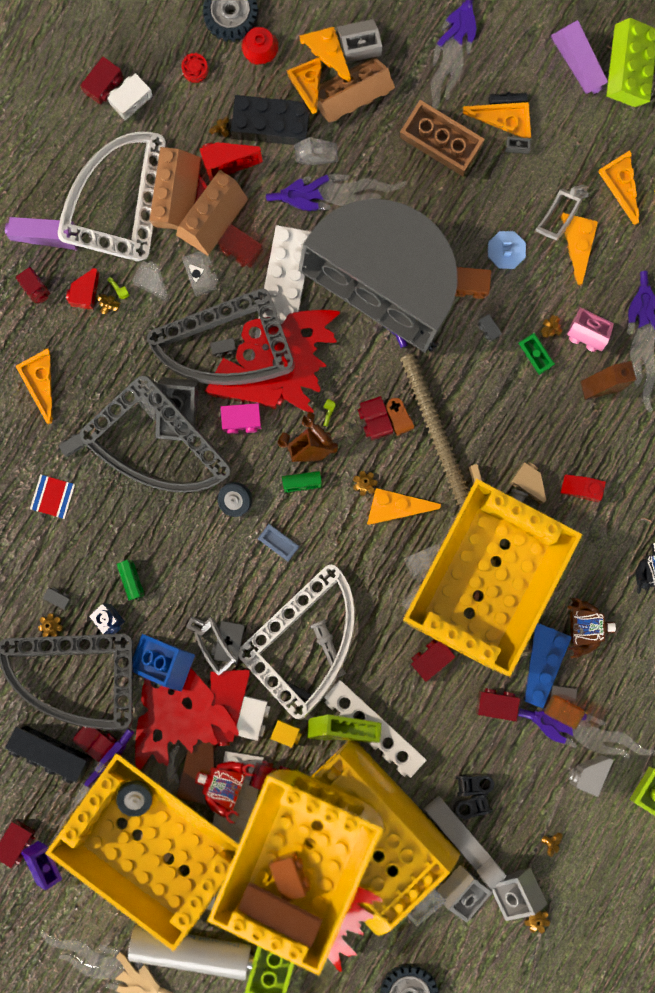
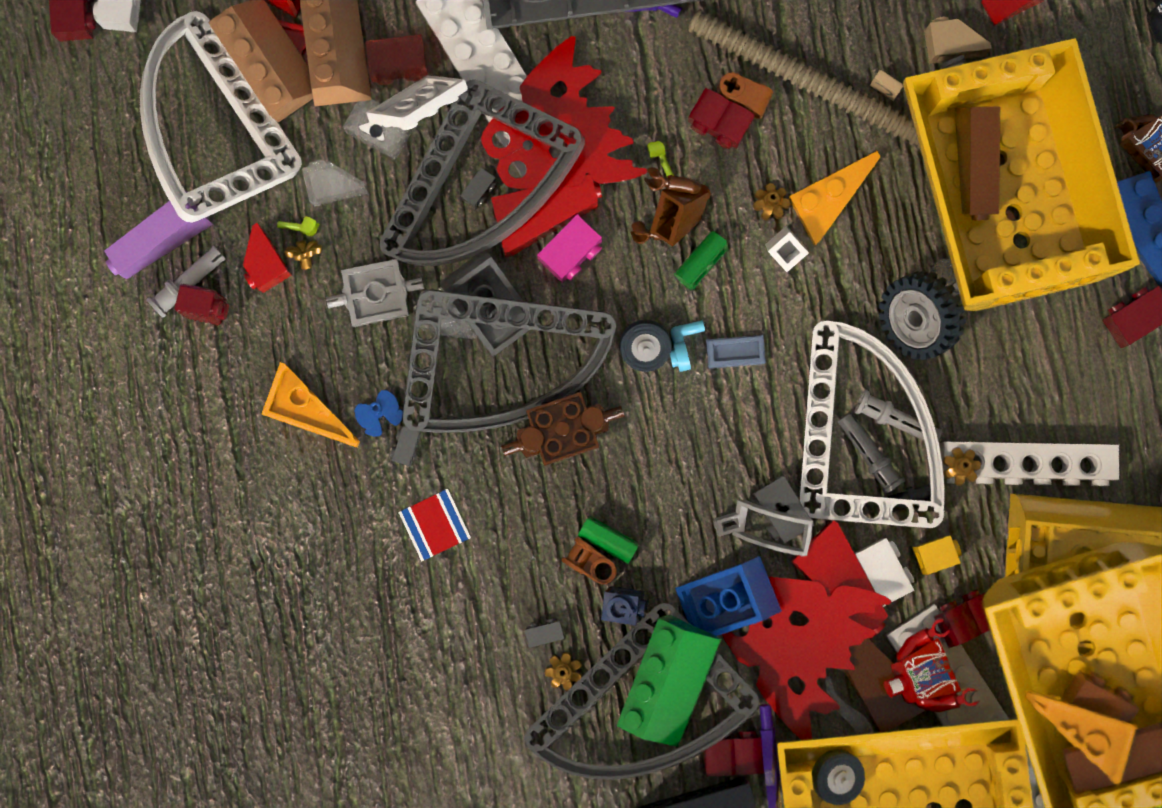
camera: 40 degrees left, 0 degrees up
(17, 267) = (167, 297): none -> light grey pin
(80, 416) = (385, 405): none -> blue piece
(94, 676) = (669, 681): none -> green slope
(110, 582) = (588, 561): none -> dark orange piece
(125, 354) = (375, 293): none -> light grey plate
(156, 505) = (562, 429): none -> reddish brown piece
(228, 277) = (417, 102): none -> white plate
(248, 519) = (679, 355): none -> medium azure plate
(271, 890) = (1099, 736): none -> light orange wing
(298, 662) = (878, 464): none -> dark grey pin
(336, 695) = (956, 466): none -> pearl gold plant
(343, 728) = (998, 492): lime arch -> none
(348, 513) = (786, 248): none -> white brick
(384, 606) = (922, 315): none -> wheel
(420, 562) = (915, 233): clear slope -> none
(432, 659) = (1022, 330): dark red brick -> none
(480, 553) = (979, 160): none -> reddish brown slope

